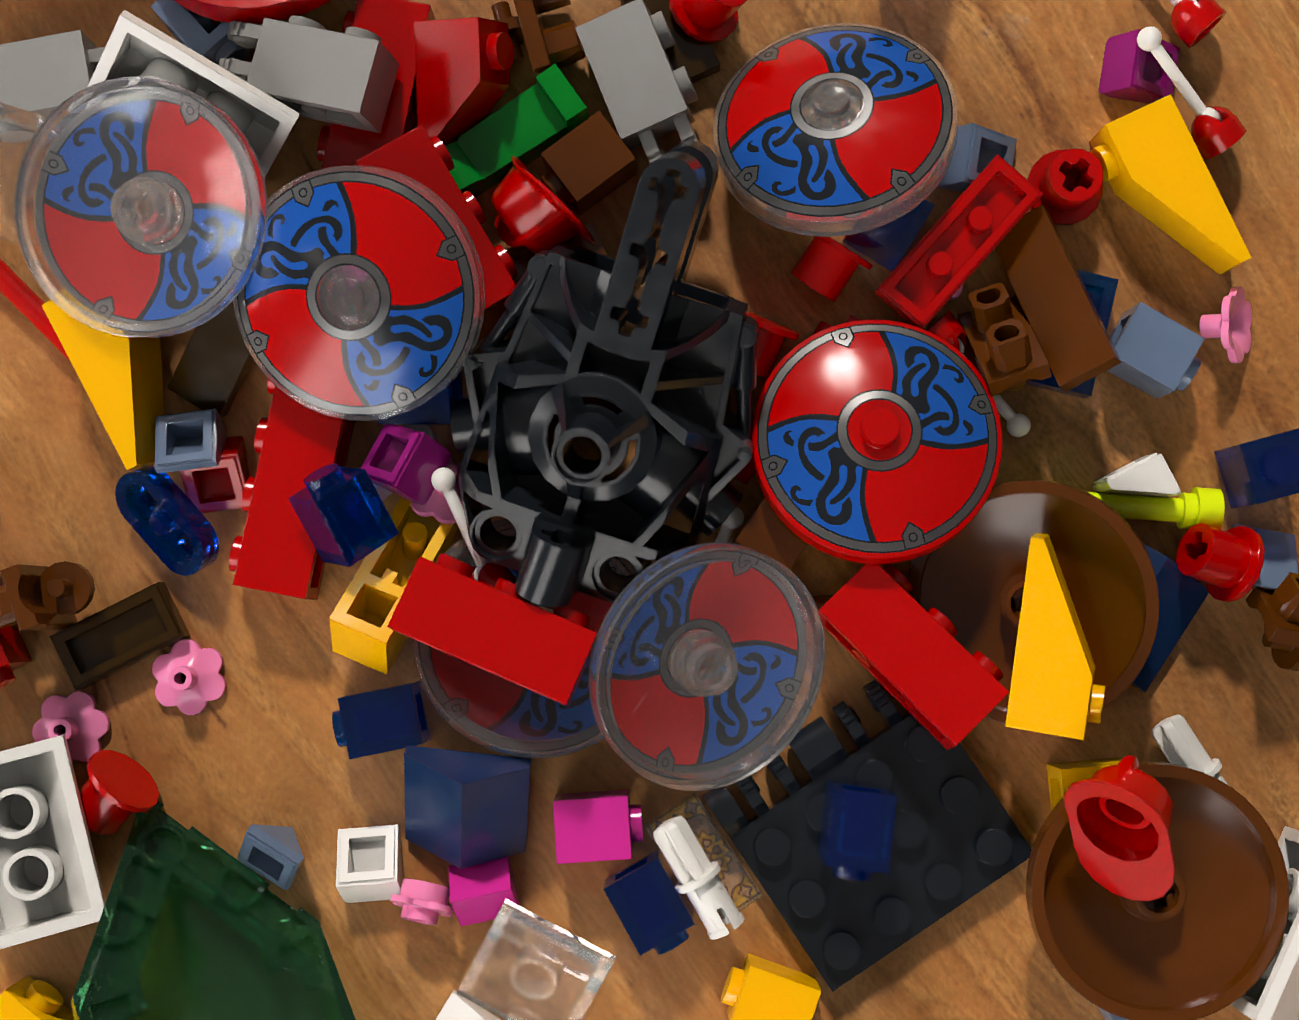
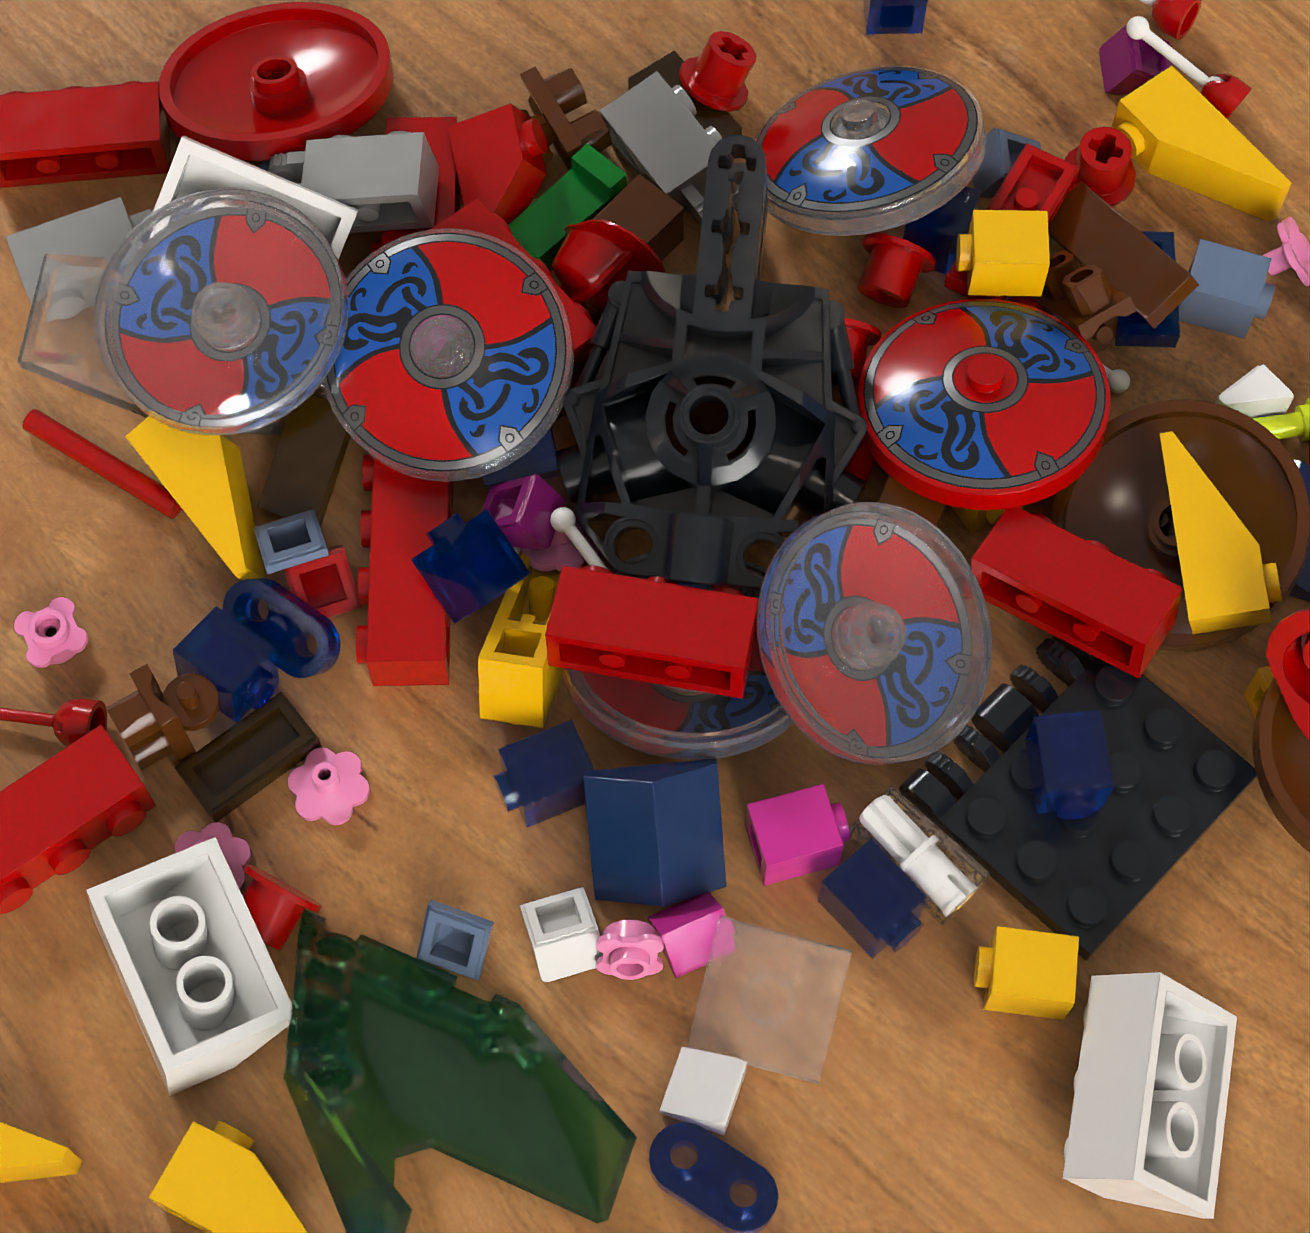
camera: 15 degrees left, 20 degrees down
(109, 551) = (232, 659): none -> clear blue brick
(938, 288) = (1005, 253): none -> yellow brick

